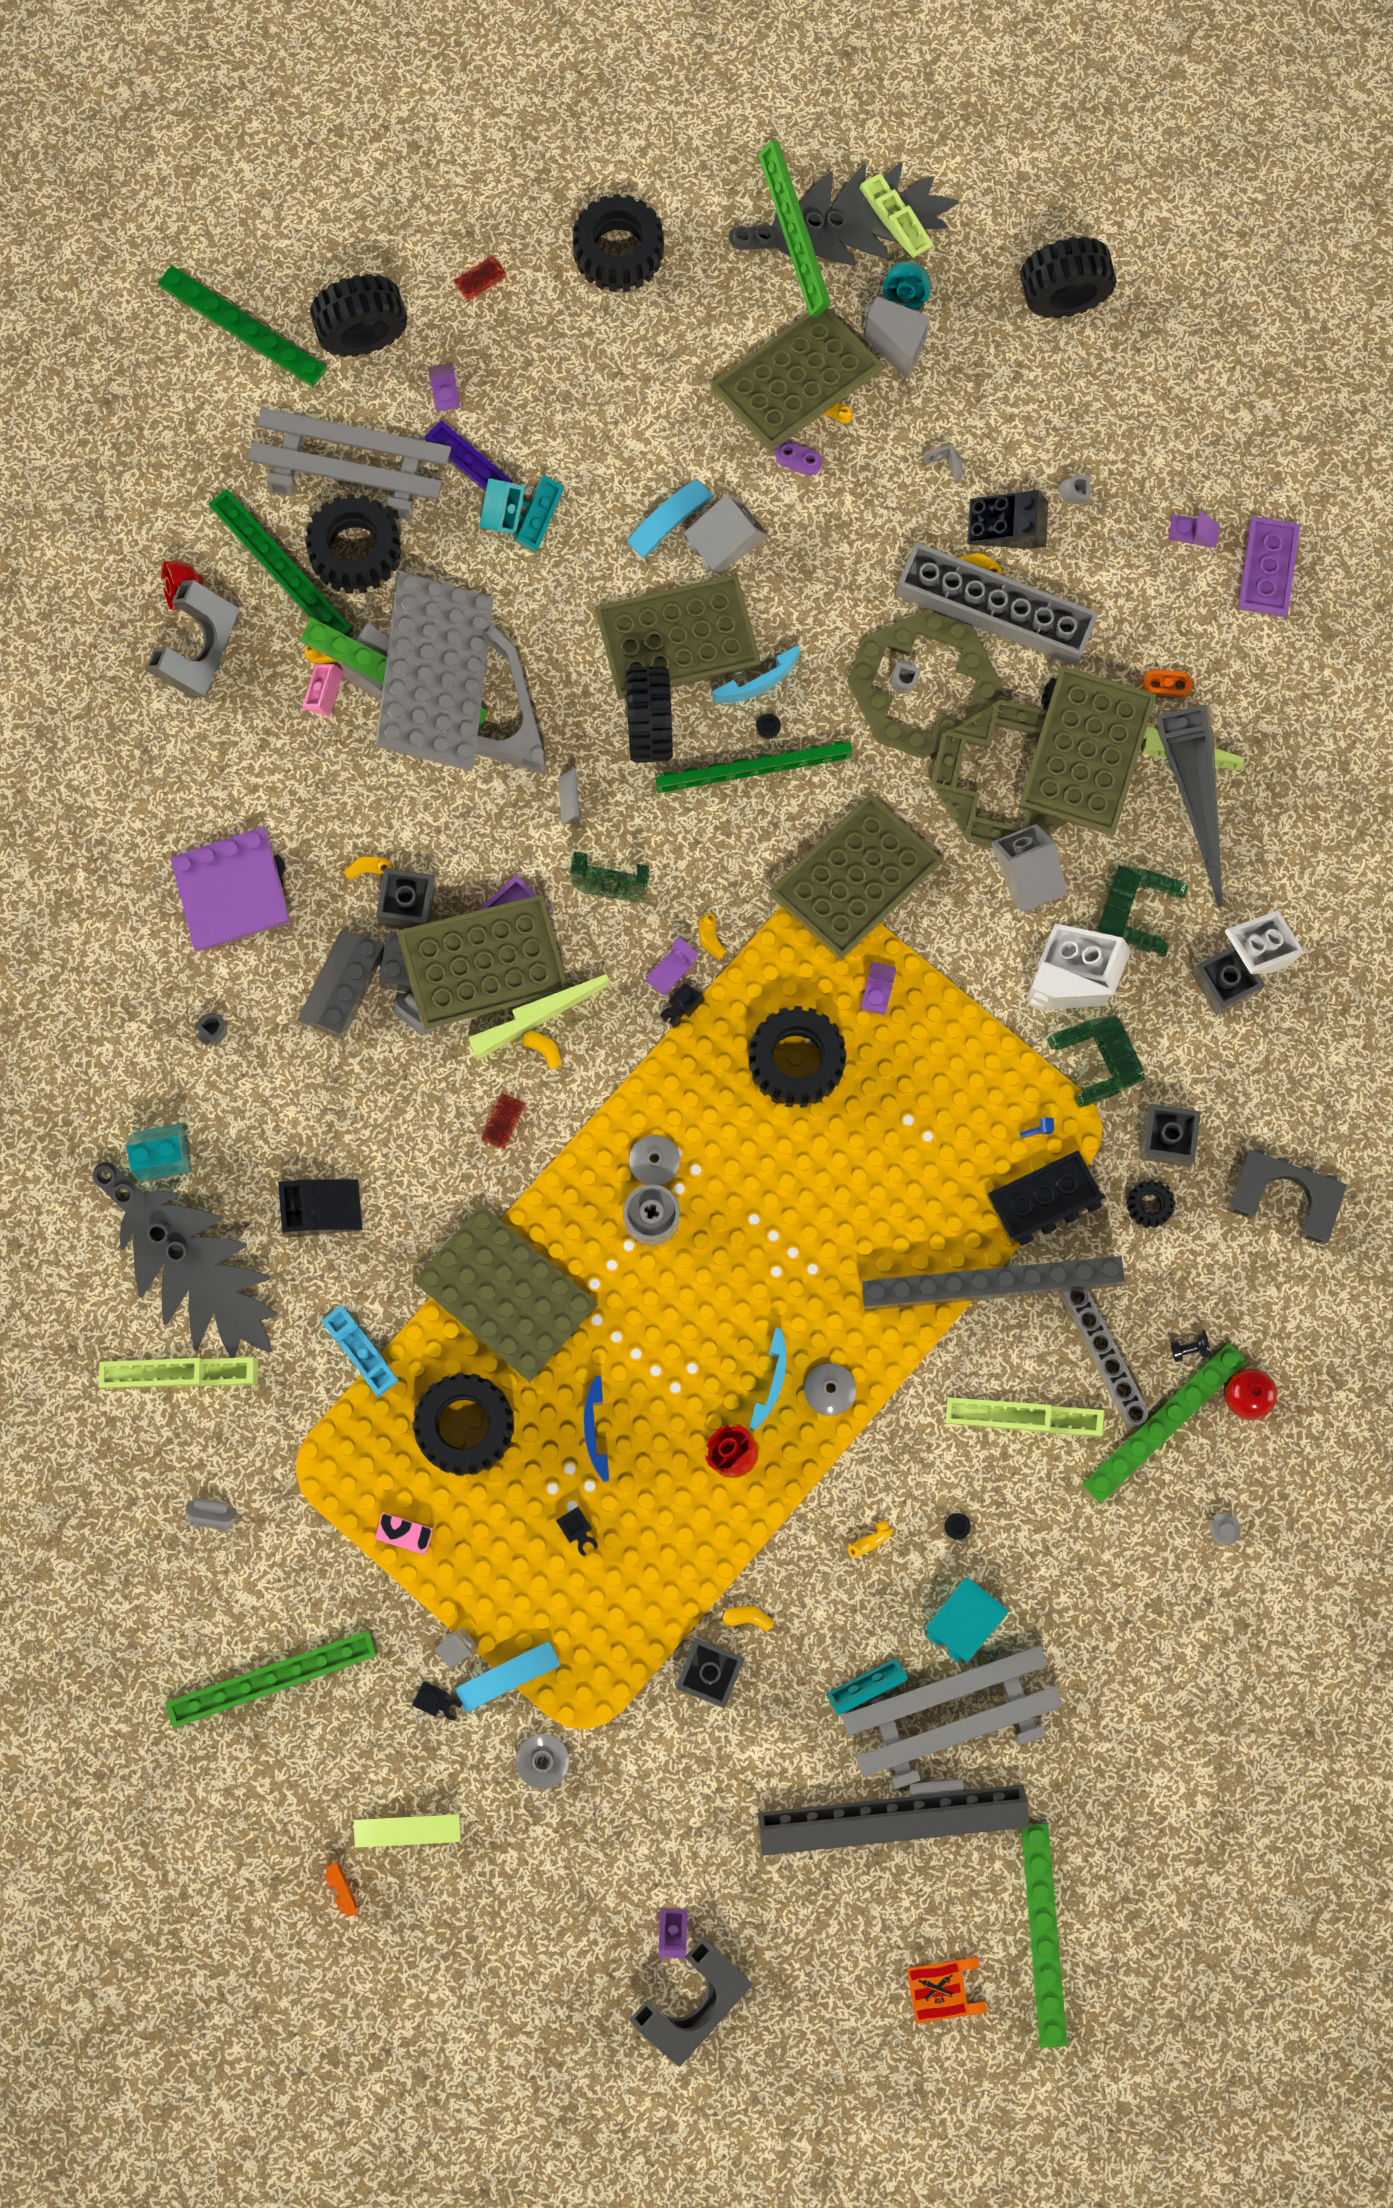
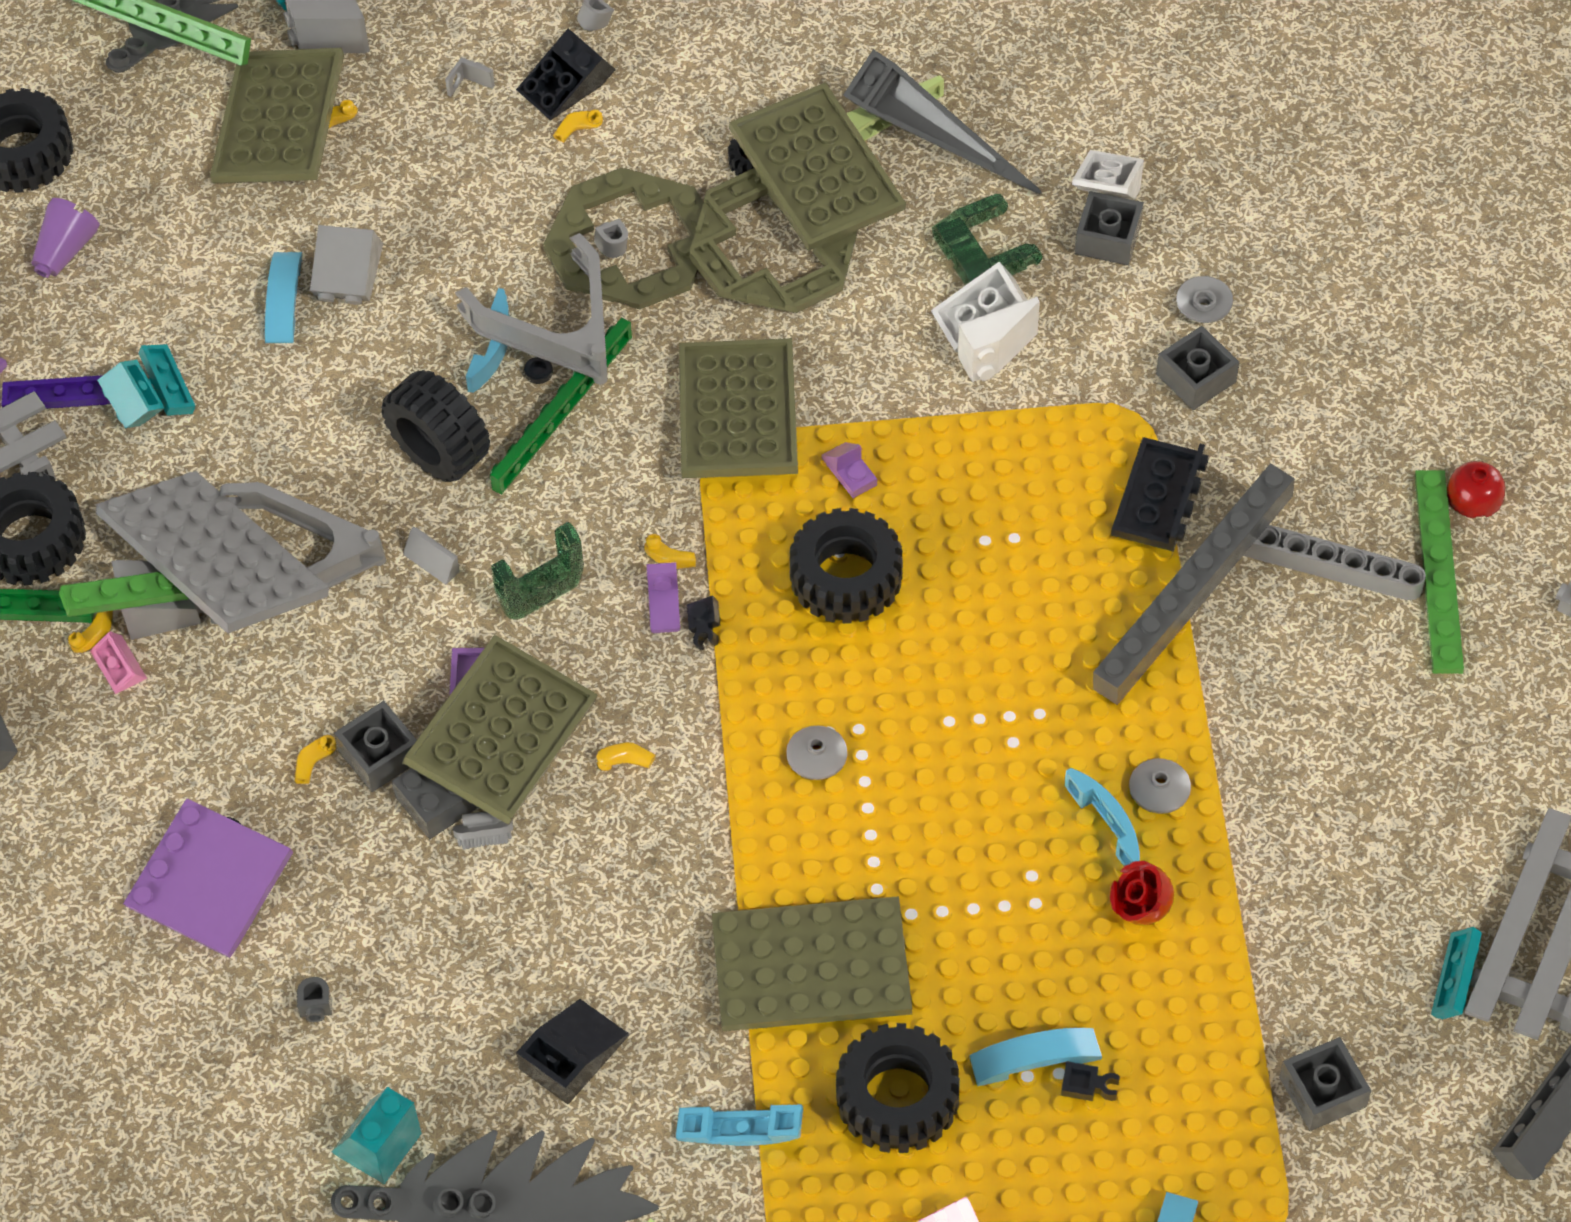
camera: 40 degrees left, 20 degrees down
(342, 984) = (392, 861): dark grey slope -> none
(503, 1121) = (654, 842): clear red tile -> none
(533, 1015) = (587, 740): yellowish green slope -> none
(569, 1482) = (1034, 1051): none -> medium azure slope
(574, 344) = (61, 236): none -> medium lavender cone
(594, 1398) = (1043, 1013): blue slope -> none
(648, 1200) = (865, 786): light grey wheel -> none
(689, 629) = (376, 356): olive plate -> none
(747, 1614) = (1299, 1015): yellow arm -> none
(796, 746) = (579, 350): none -> light grey piece
(798, 458) = (343, 171): medium lavender plate -> none
(871, 1541) = (1328, 864): yellow arm -> none
(957, 1526) = (1378, 792): black tile -> none
(965, 1620) = (1470, 843): teal slope -> none
(996, 604) = (623, 134): light grey brick -> none
(1025, 1417) = (1333, 663): yellowish green slope -> none
(1030, 867) = (868, 281): light grey slope -> none
(1046, 1127) = (1098, 447): blue hand -> none
(1115, 1050) = (1082, 350): clear green connector -> none
(1164, 1196) = (1244, 416): black tyre -> none
(1167, 681) = (819, 76): orange plate -> none
(1201, 1346) = (1400, 488): black piece -> none
(1244, 1085) = (1204, 290): none -> light grey dish
(1322, 1192) = (1354, 308): dark grey arch -> none

